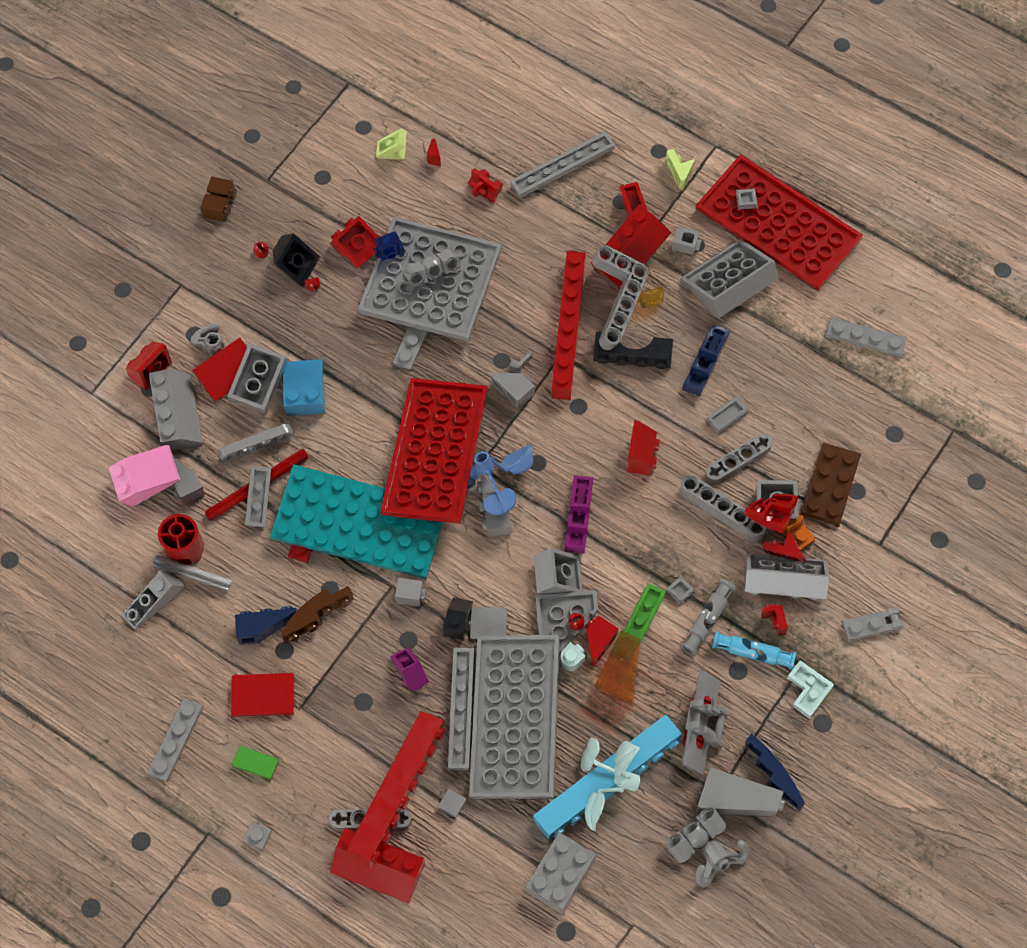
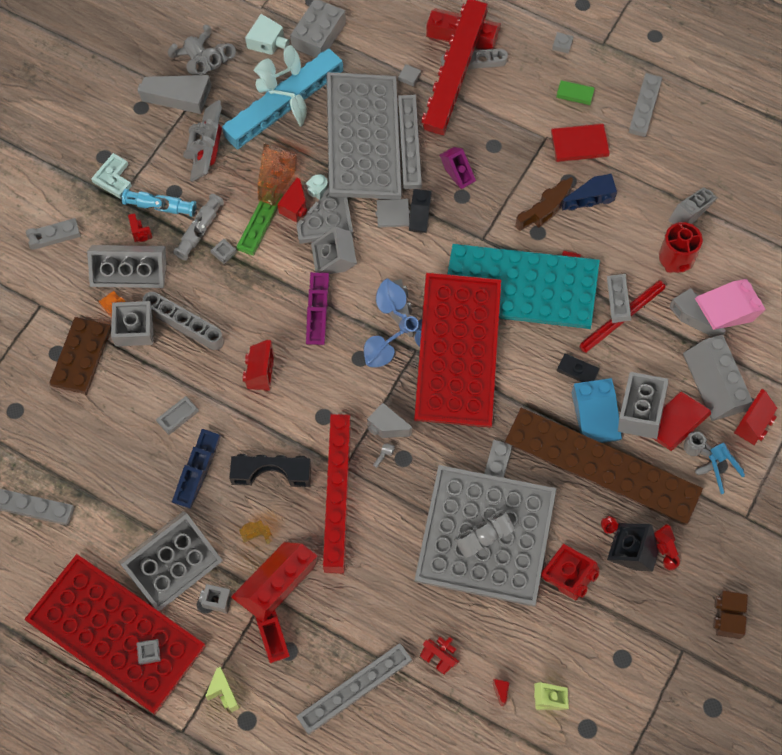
camera: 175 degrees right, 0 degrees up
(191, 333) = (722, 453): none -> dark azure plant
(192, 573) = (649, 227): light grey axle -> none
(255, 443) = (631, 352): light grey beam -> none
(265, 255) = (665, 541): none -> red bracket
(308, 336) = (604, 466): none -> reddish brown plate
(314, 432) = (577, 369): none -> black plate
(388, 246) = (534, 557): clear blue brick -> none
(410, 592) = (465, 228): light grey brick -> none
(577, 625) = (316, 210): red hinge -> none
(624, 296) = (281, 511): light grey beam -> none
(625, 869) = (266, 36): none -> light aqua torso
(740, 461) = (165, 370): light grey beam -> none
(773, 512) = (134, 302): red brick -> none
(778, 775) = (143, 107): dark blue slope -> none
(789, 551) = (123, 280): red slope -> none

